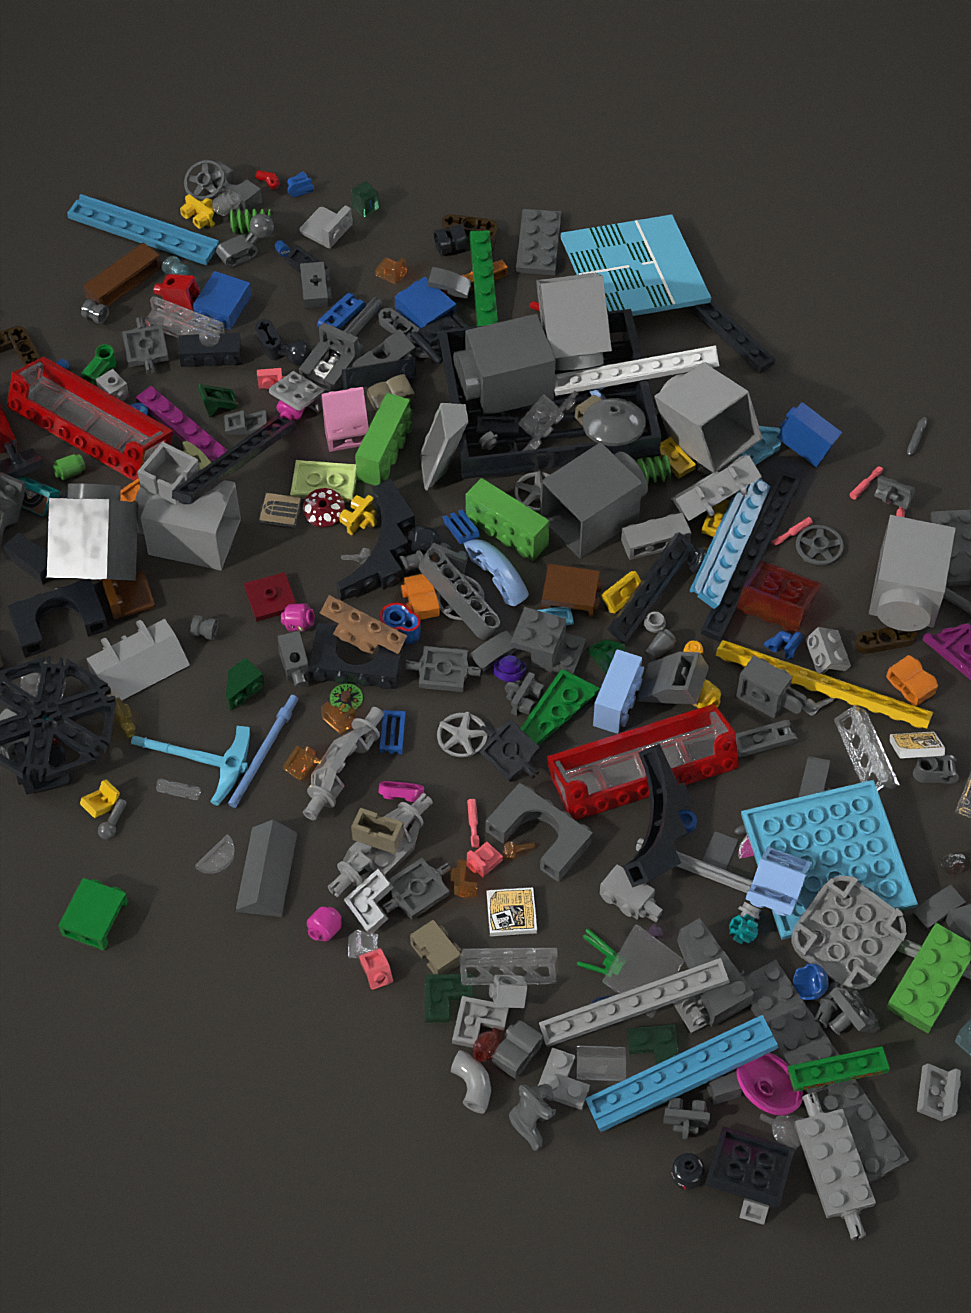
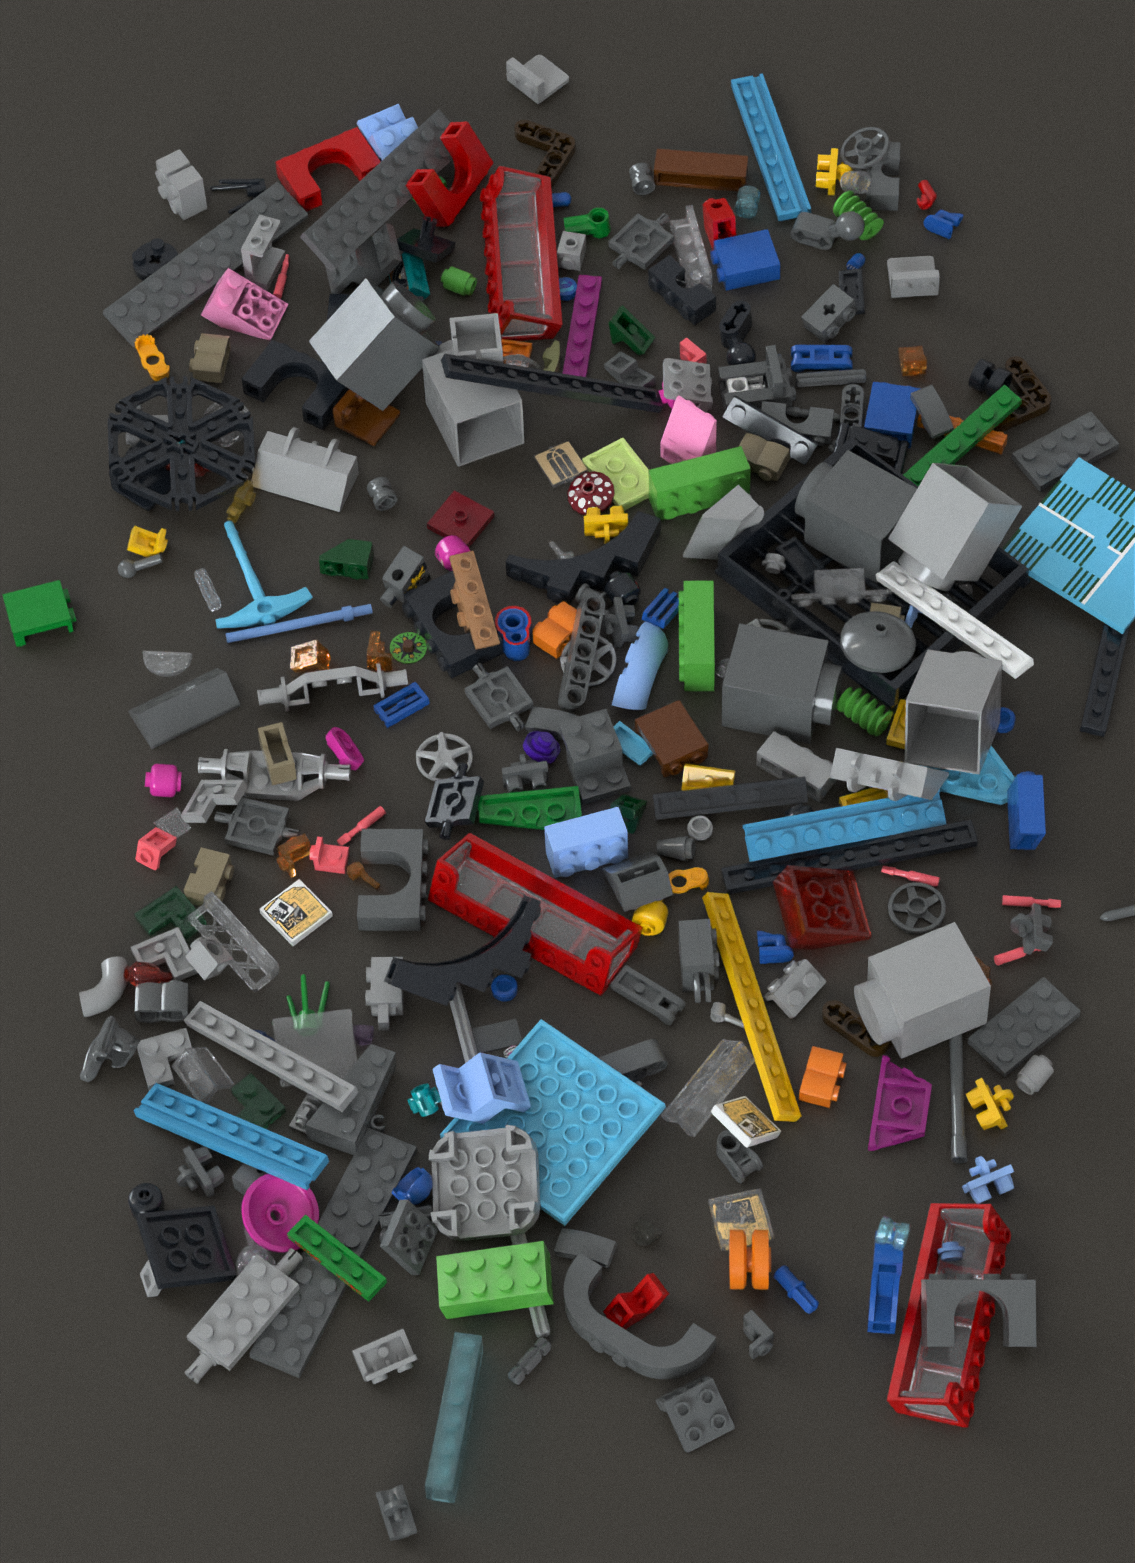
camera: 55 degrees right, 0 degrees up
(364, 198) = (973, 281): clear green brick -> none

